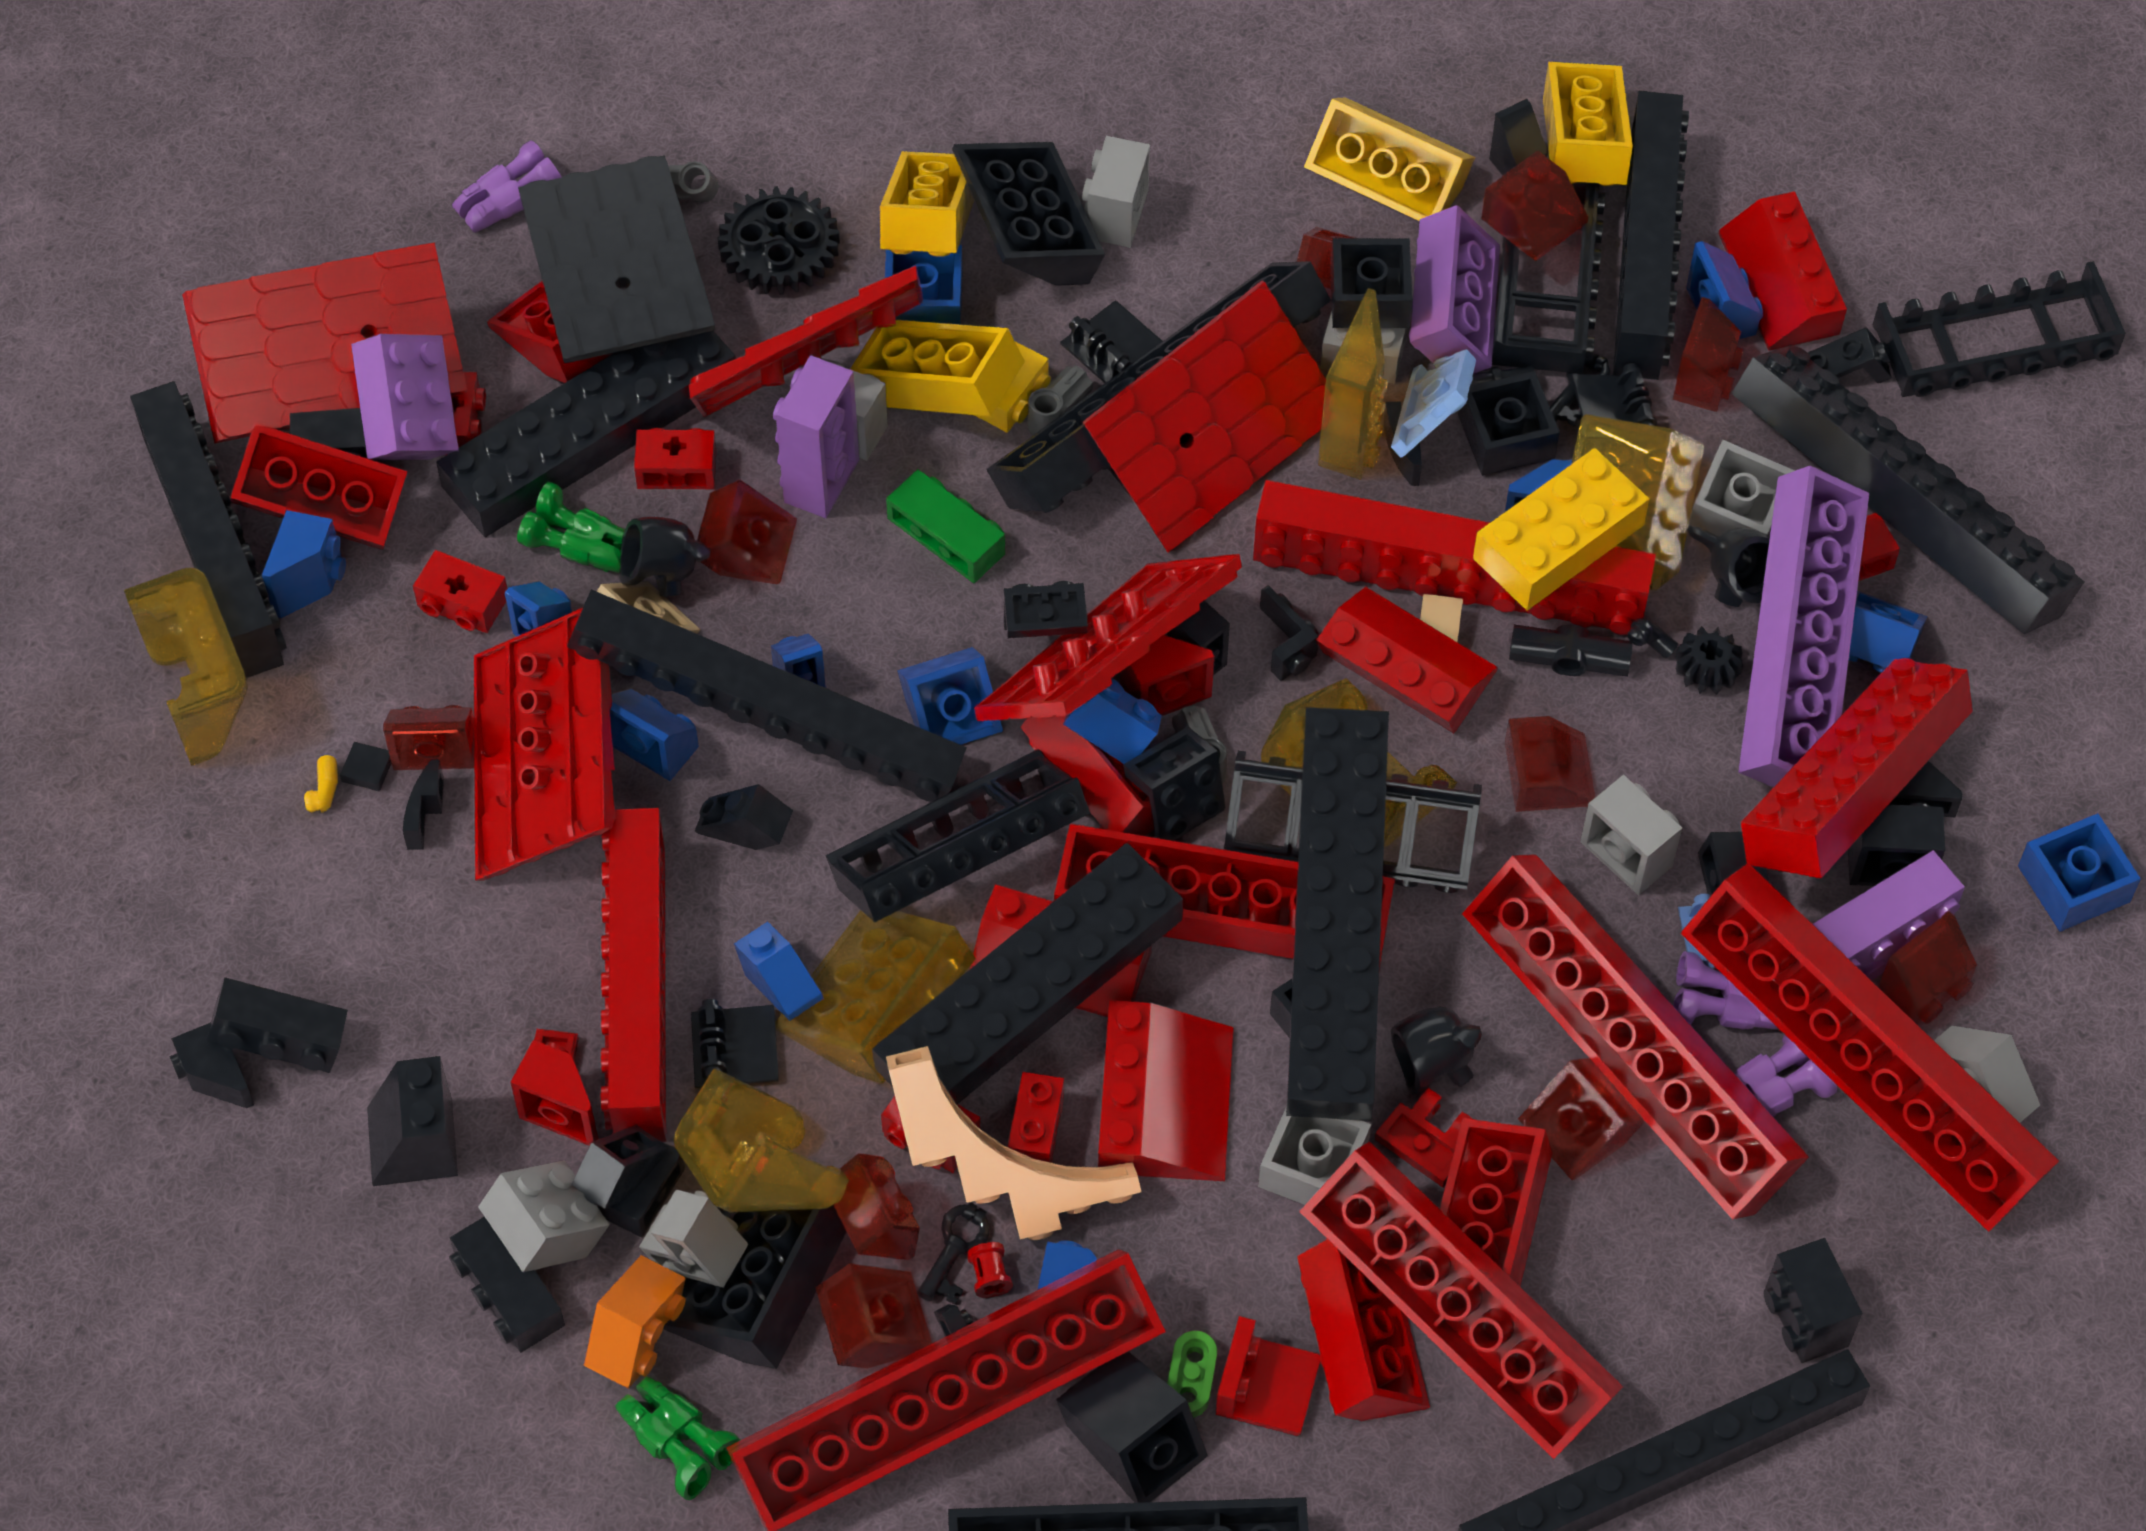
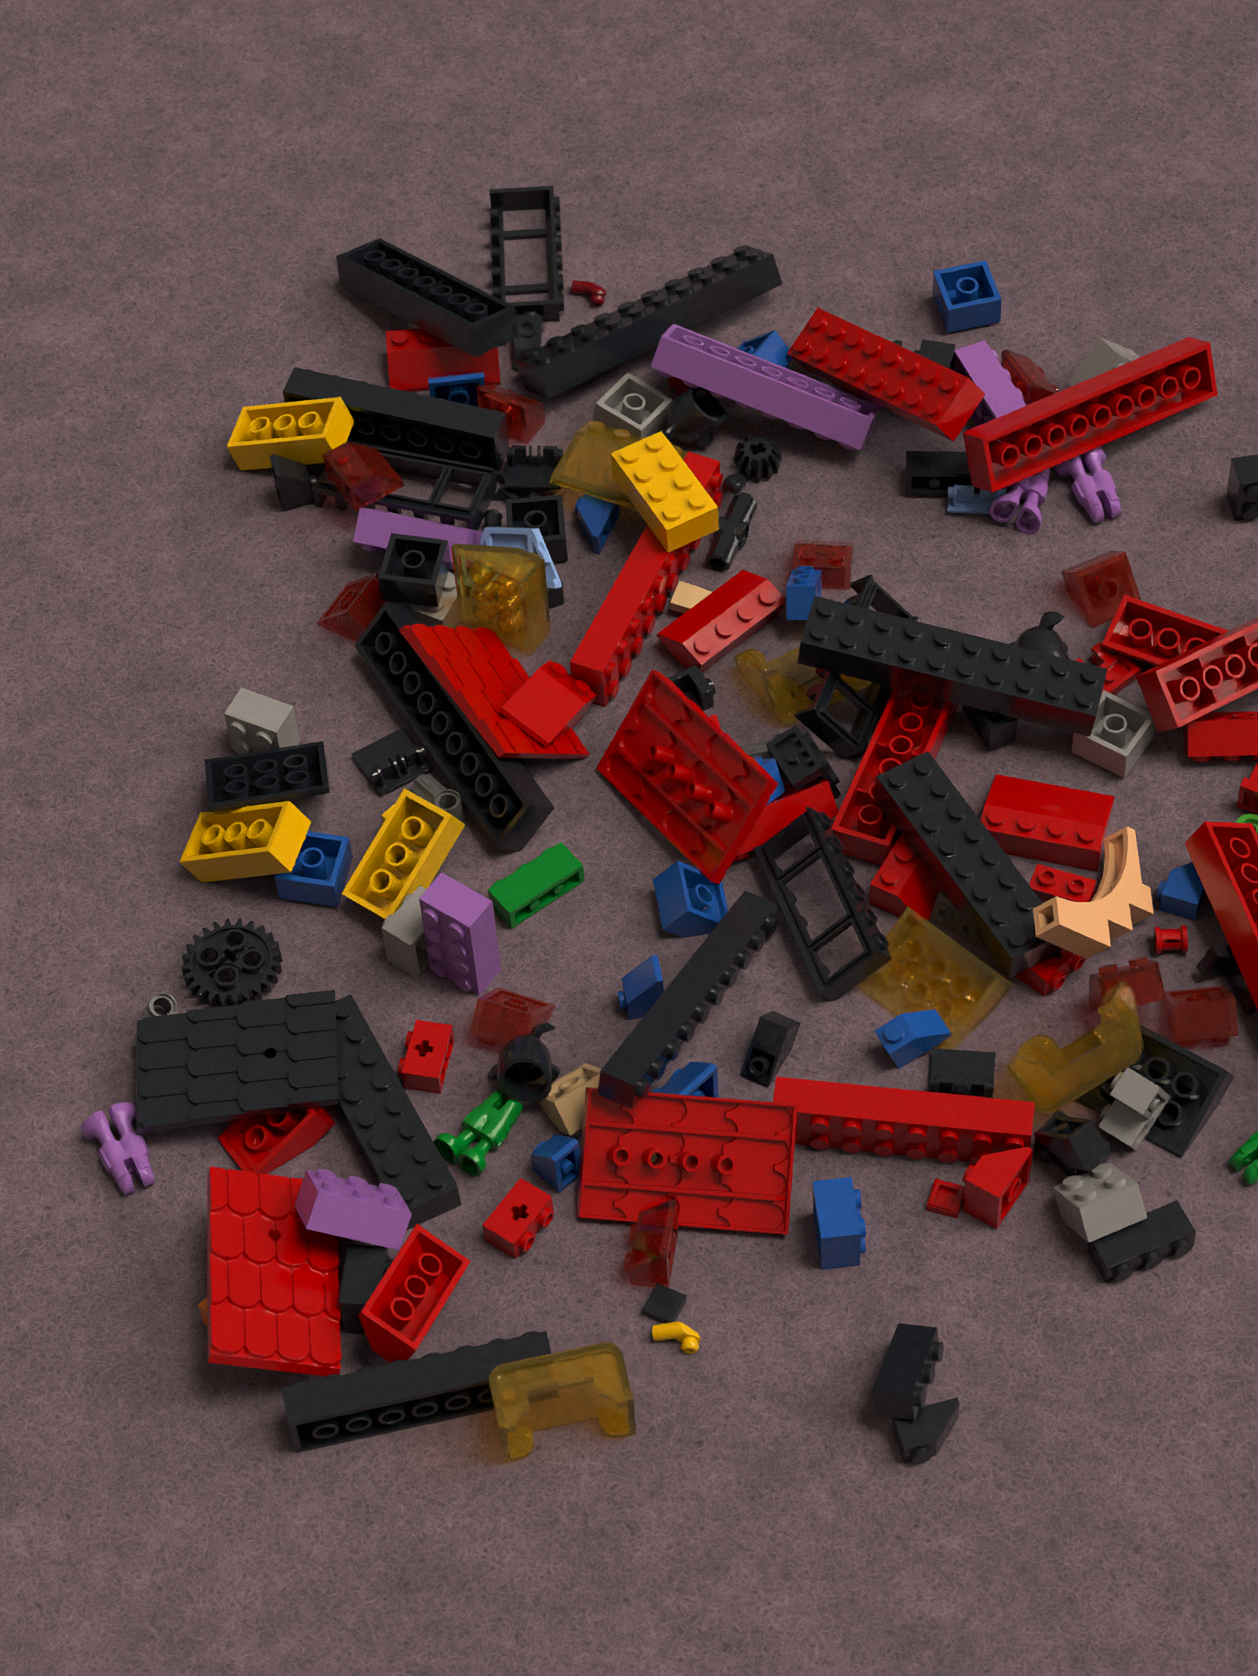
camera: 75 degrees left, 5 degrees down
(302, 562) = (466, 1316): blue slope -> none
(412, 1124) = (1008, 1284): black slope -> none
(423, 800) = (704, 1259): black slope -> none
(480, 921) = (838, 1223): none -> blue brick
(632, 1319) = (1195, 1150): orange brick -> none
(821, 333) = (378, 923): red piece -> none
(954, 1246) = (1173, 975): black piece -> none
(1045, 610) = (644, 818): black bracket -> none
(1204, 475) = (549, 703): none -> red slope
(1387, 160) = (275, 565): yellow slope -> none
(1463, 741) = (800, 591): none -> blue brick
(1631, 834) = (896, 517): light grey brick -> none
(1635, 1036) = (1051, 542): red brick -> none
(1850, 216) = (427, 297): none -> black brick
(1963, 421) = (589, 288): none -> dark red arm

